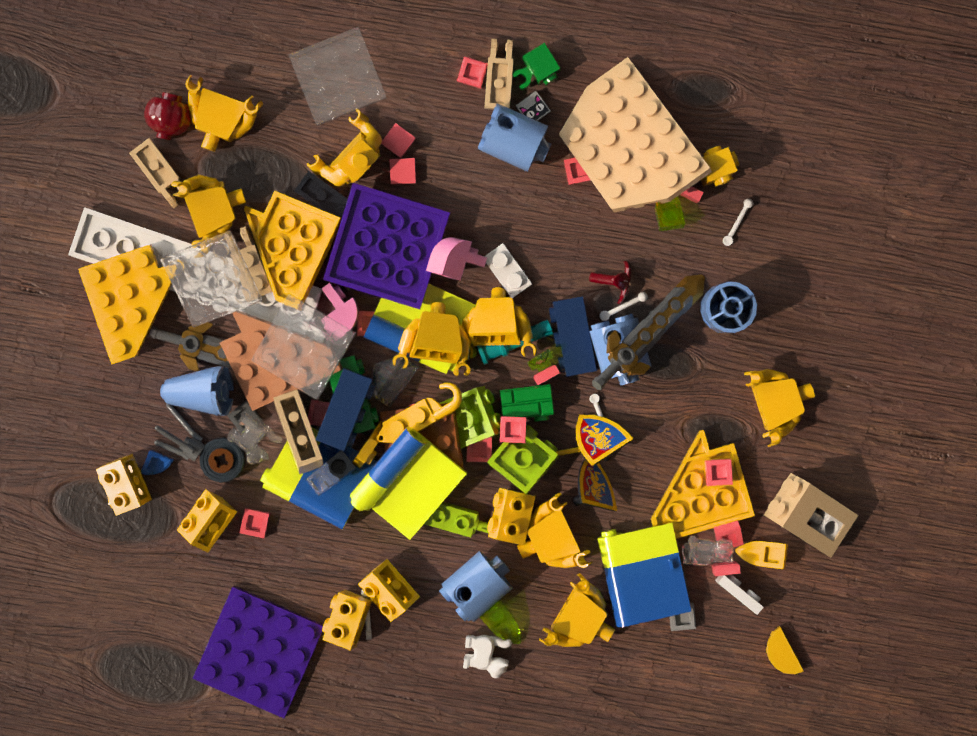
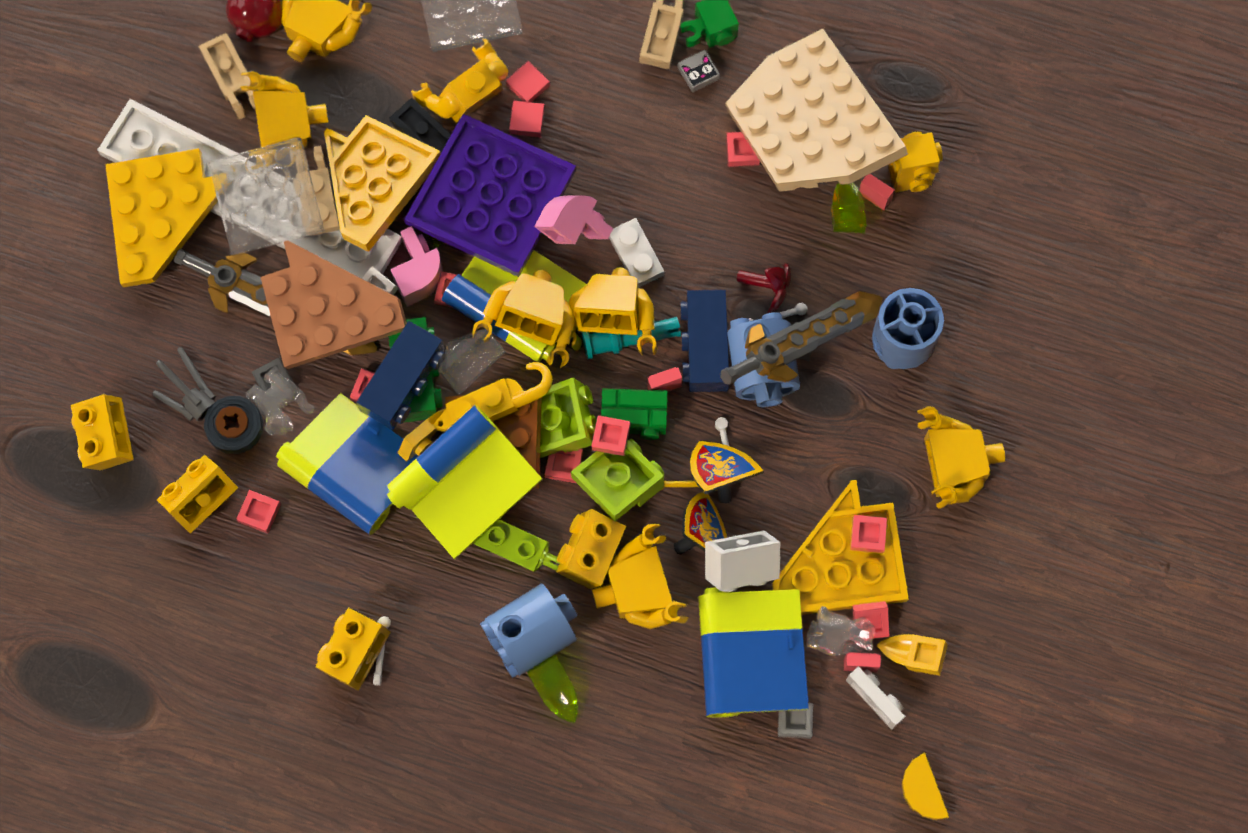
camera: 15 degrees right, 15 degrees down
(156, 463) = (148, 418): blue tile -> none
(201, 391) = (225, 333): medium blue cone -> none
(258, 652) = (228, 678): dark purple plate -> none
(298, 432) = (337, 398): tan brick -> none
(303, 346) = (363, 286): clear plate -> none
(331, 473) = (369, 454): leg -> none
(388, 590) = (414, 618): yellow brick -> none
(472, 72) = (631, 20): coral tile -> none
(483, 651) = (524, 722): white animal -> none
(514, 138) = (670, 94): medium blue cylinder -> none
(541, 361) = (659, 359): clear neon green plate -> none
(580, 618) = (660, 695): yellow torso -> none
(627, 509) = (742, 561): none -> white brick
(727, 240) = (918, 257): white hinge -> none
(797, 504) = (966, 587): tan brick -> none

